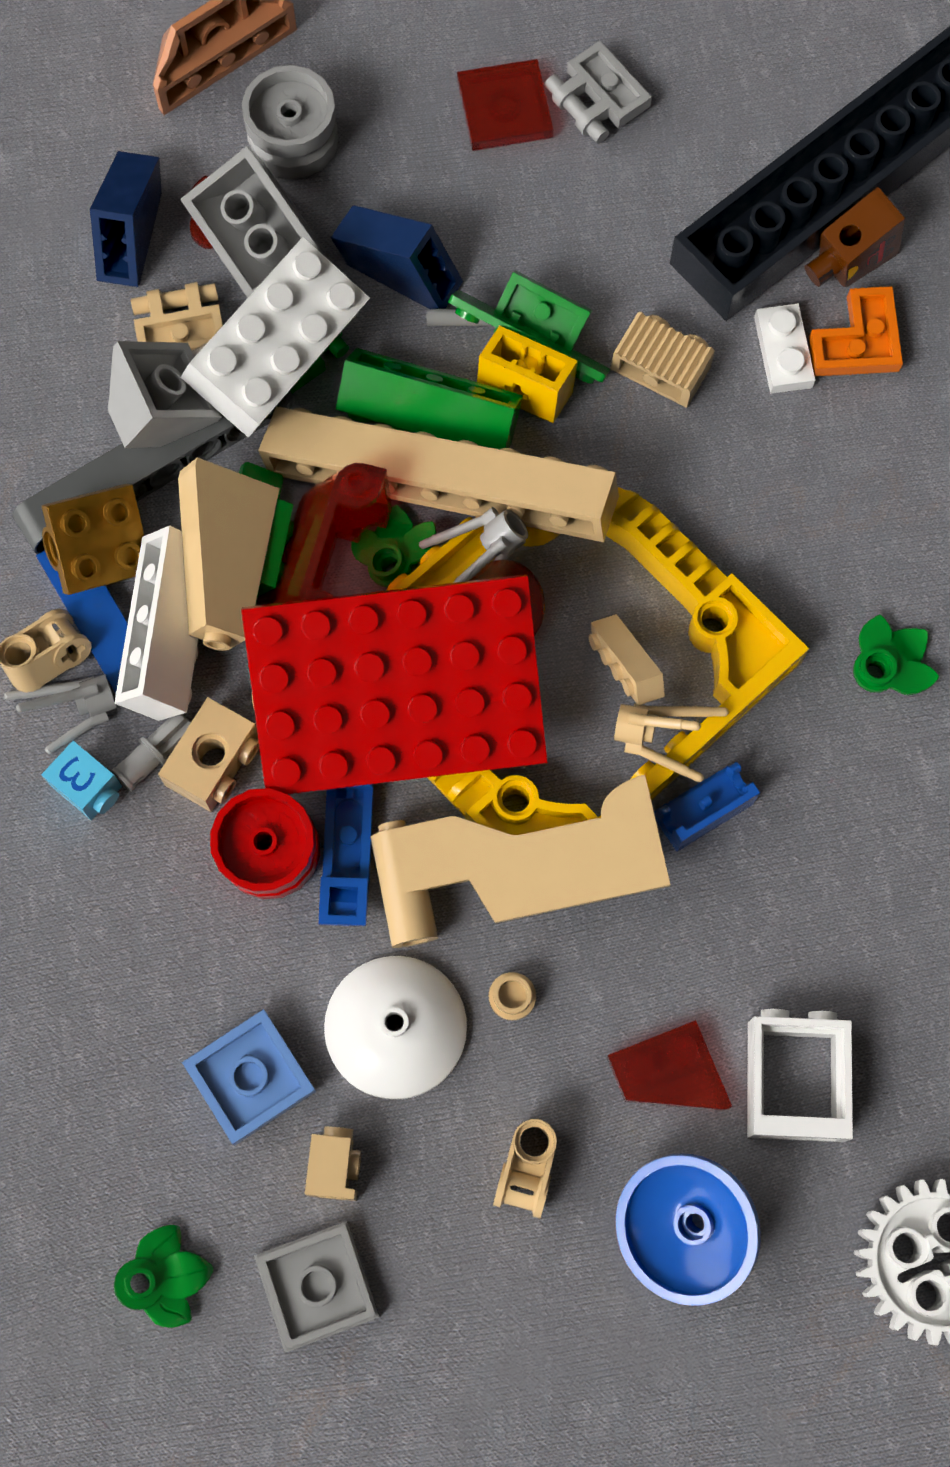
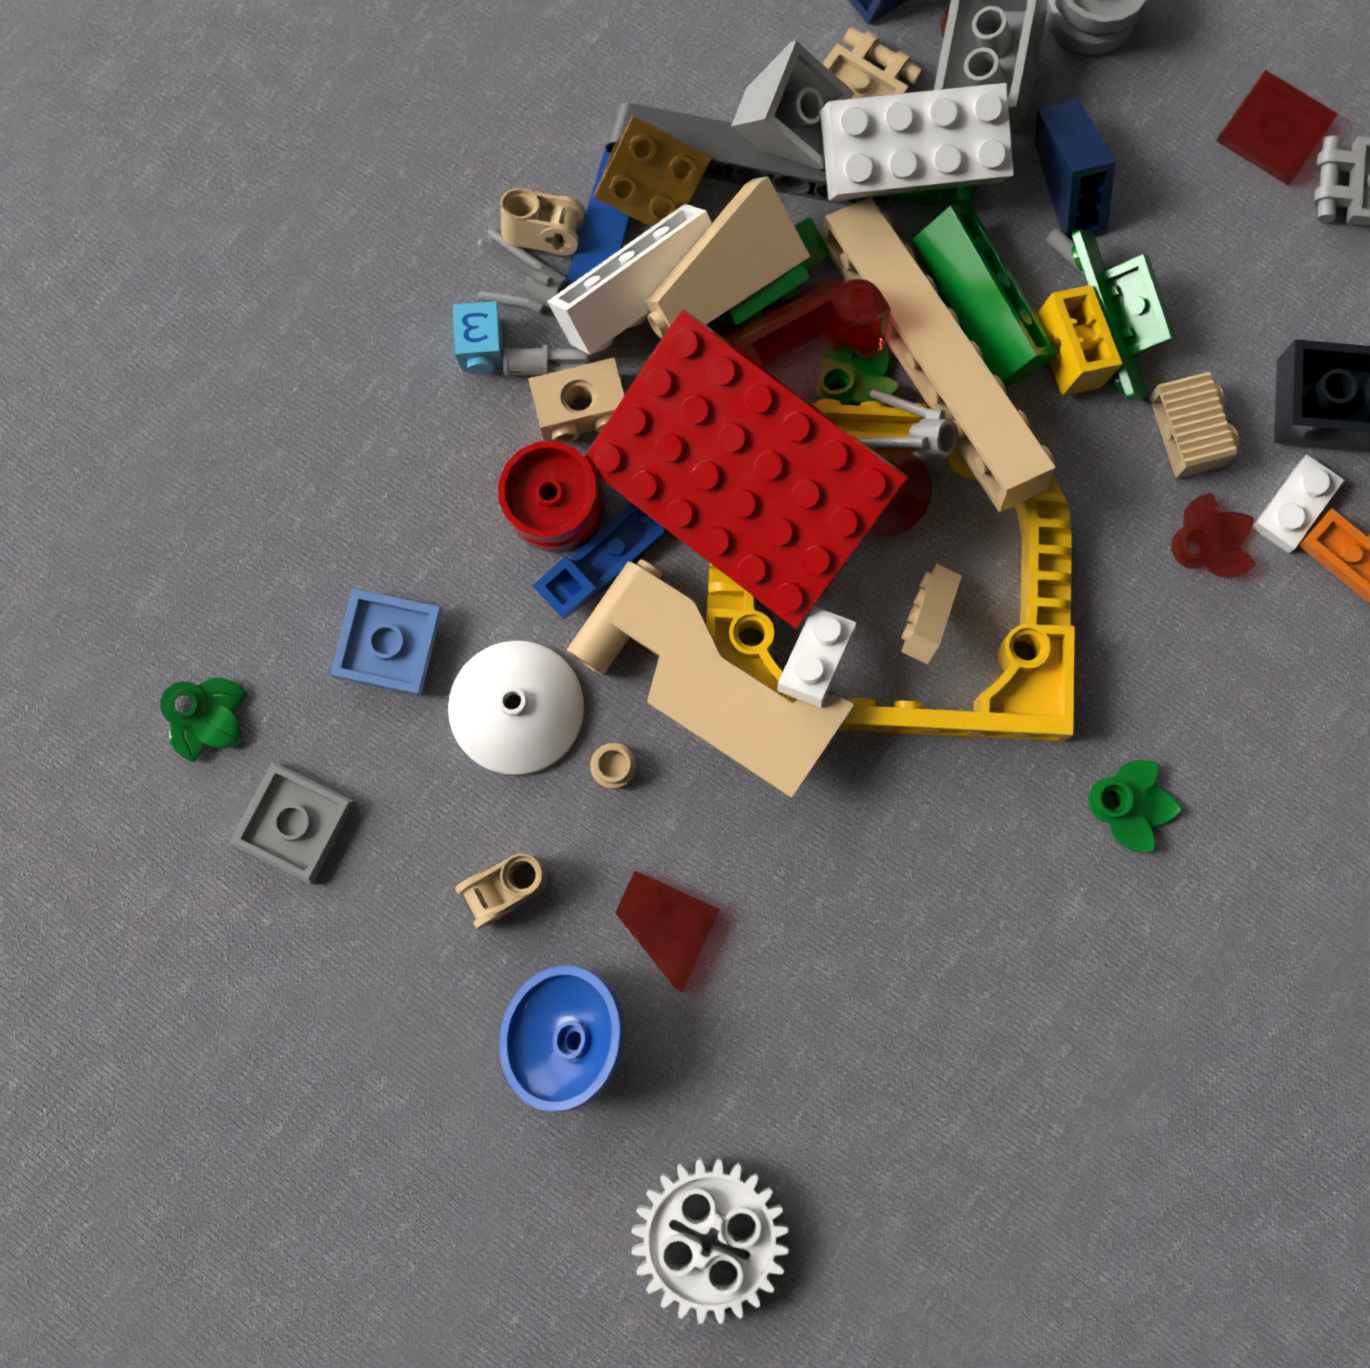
camera: 50 degrees right, 5 degrees up
(332, 1165) = (378, 755): tan brick -> none
(583, 767) = (816, 657): none -> white plate
(639, 724) = (889, 665): tan plant -> none
(705, 806) = (882, 772): blue hinge -> none
(755, 421) = (1216, 535): none -> clear red plate
(819, 1024) = (798, 998): white window -> none

